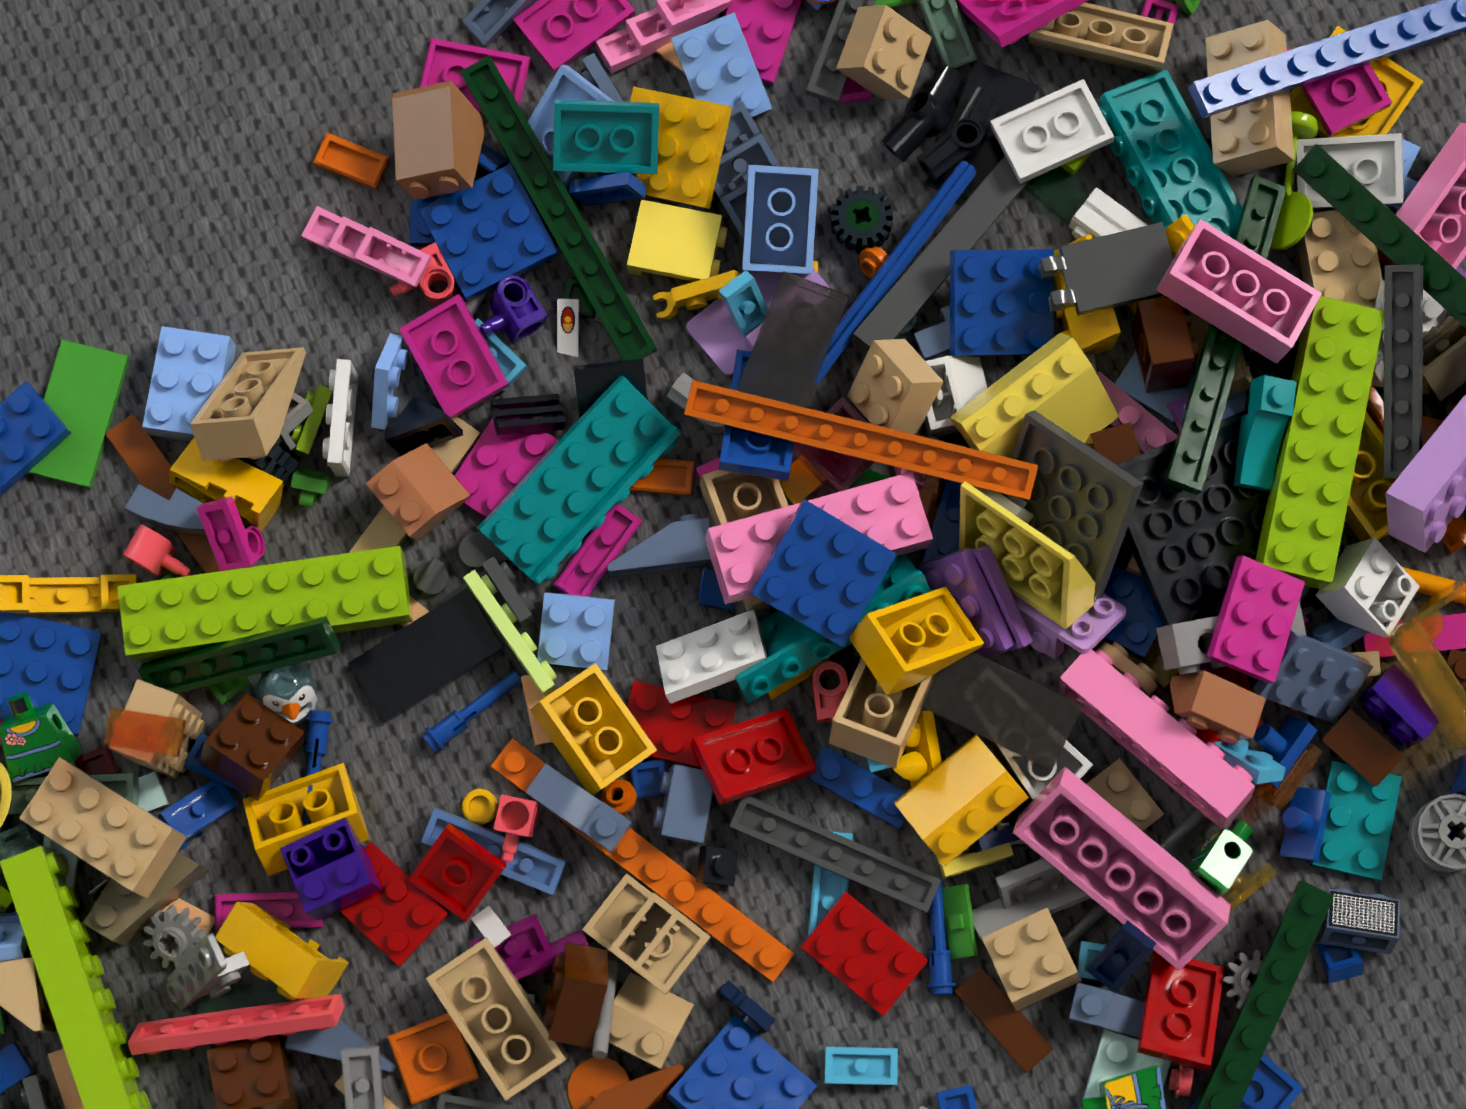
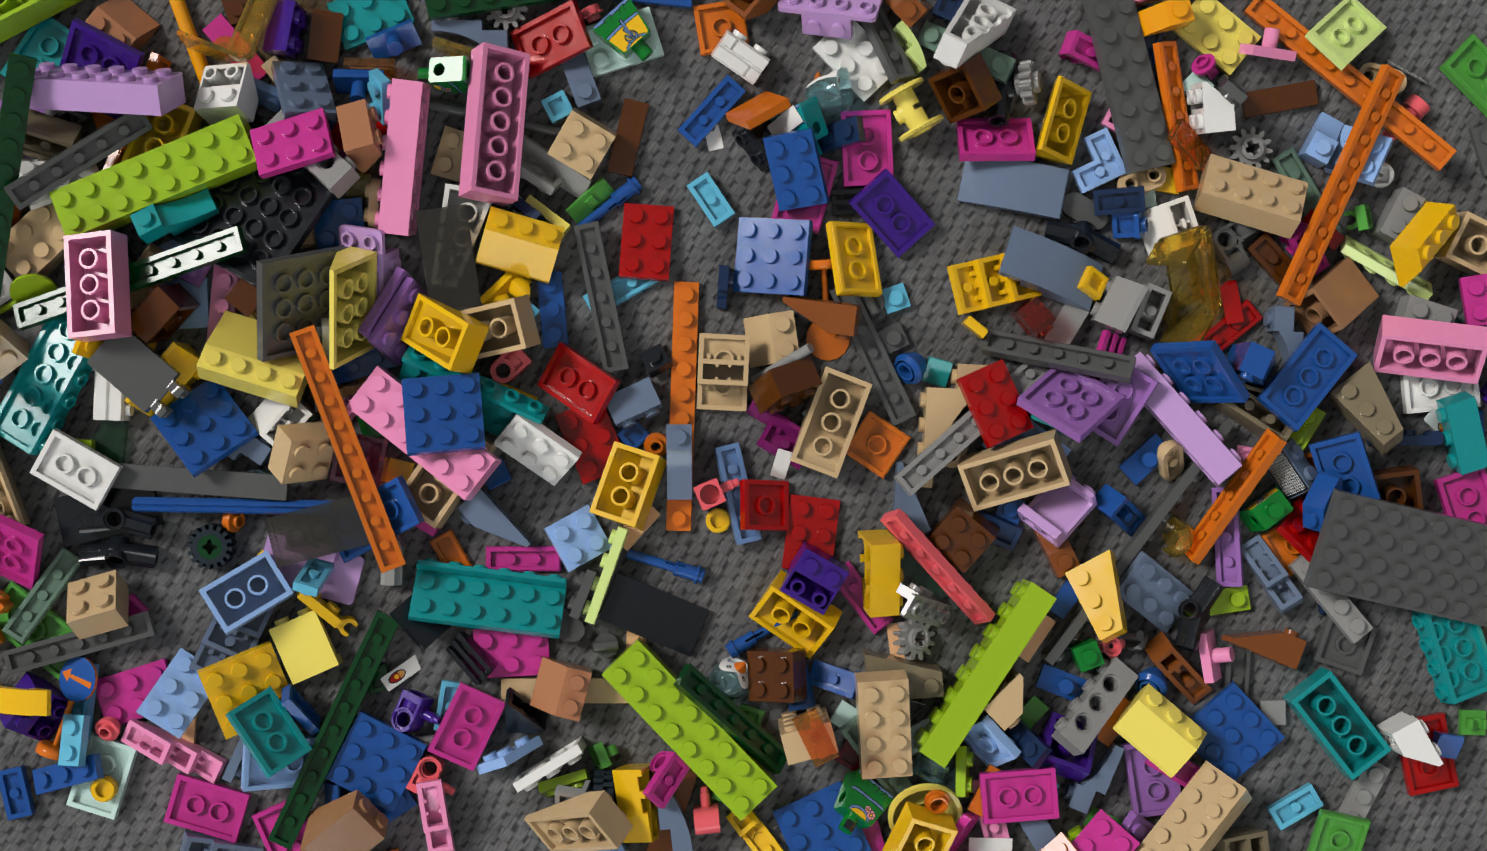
camera: 130 degrees left, 10 degrees up
(1121, 956) = (545, 92): dark blue plate -> none
(1251, 925) = (471, 31): none -> sand blue slope

